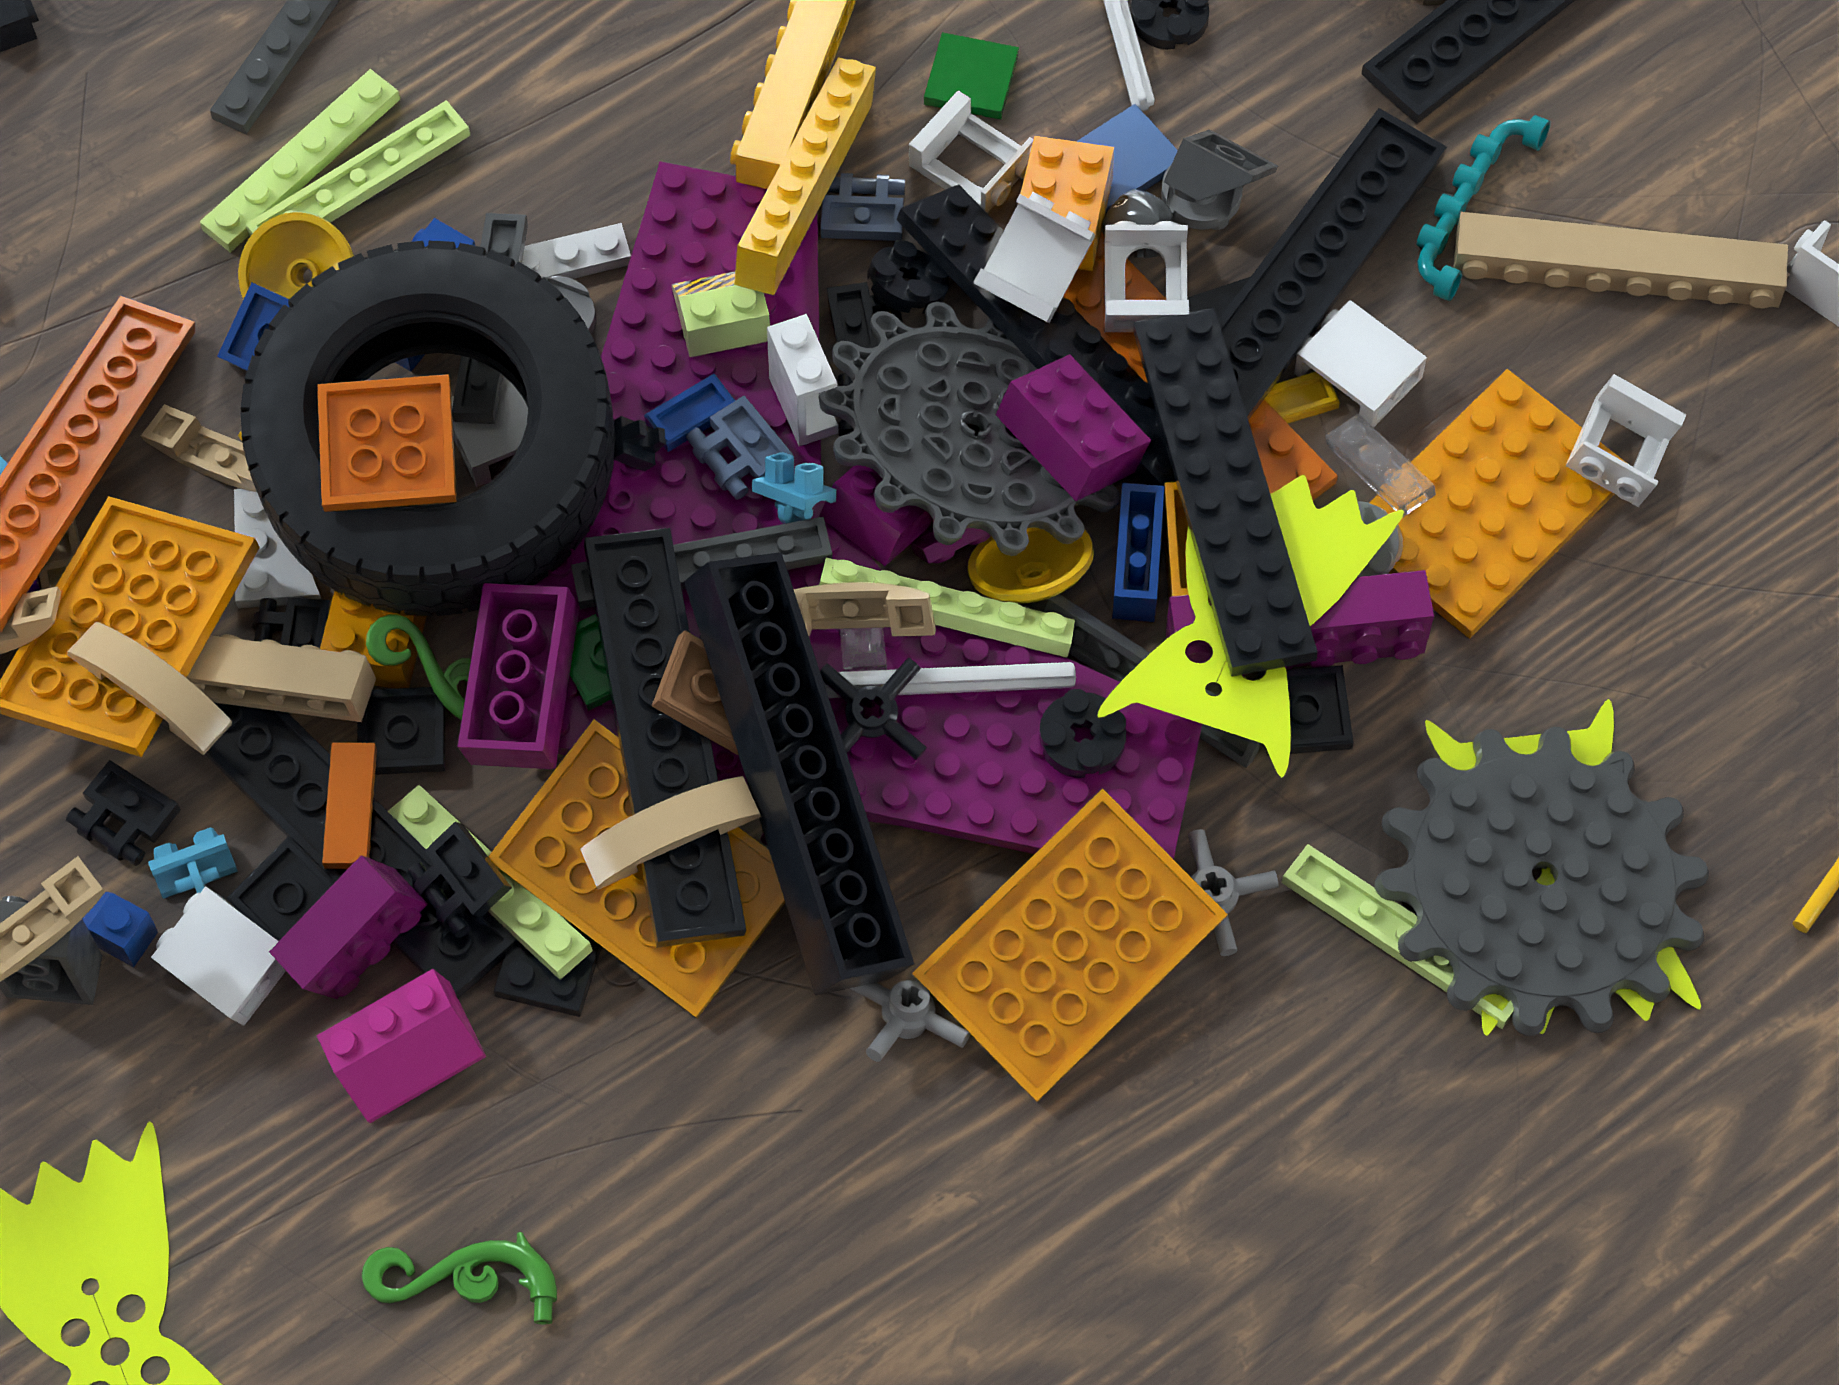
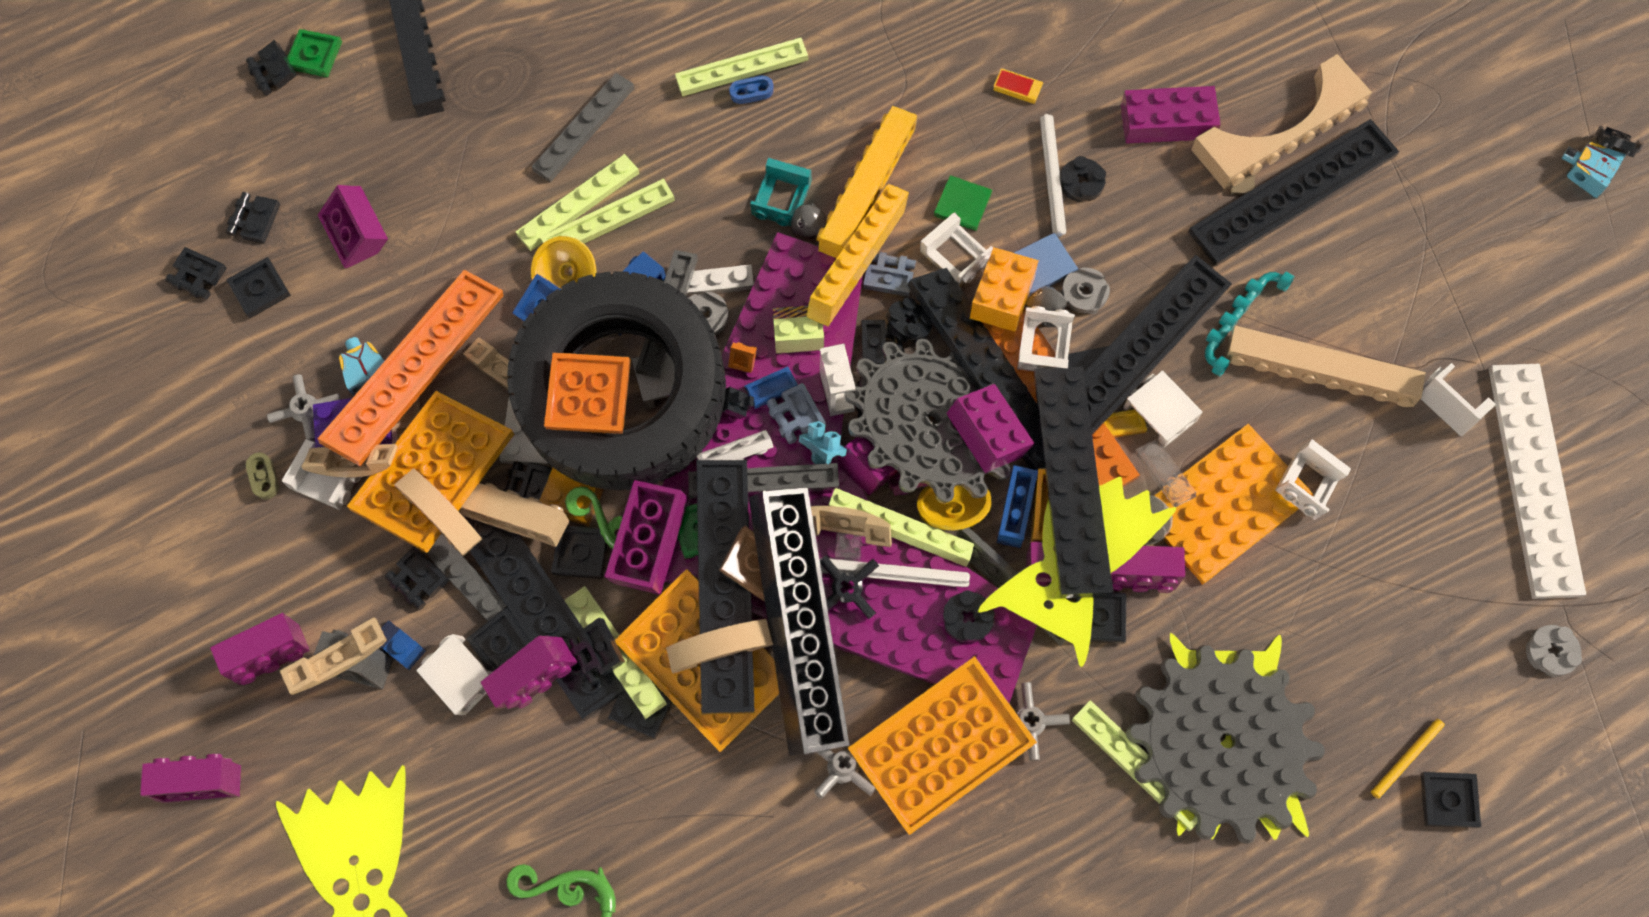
camera: 10 degrees right, 5 degrees up
(192, 866) = (449, 618): medium azure hips -> none
(202, 799) = (465, 578): none -> dark grey plate
(349, 804) = (542, 594): orange tile -> none
(401, 1045) = (549, 745): dark pink slope -> none
(633, 369) = (742, 357): none -> orange tile
(659, 65) = (787, 173): none -> teal panel
(678, 506) = (737, 450): none -> white plate
(708, 137) = (808, 221): none -> dark grey piece
(1036, 257) = (983, 322): white panel -> none
(1212, 165) = (1095, 278): dark grey slope -> none

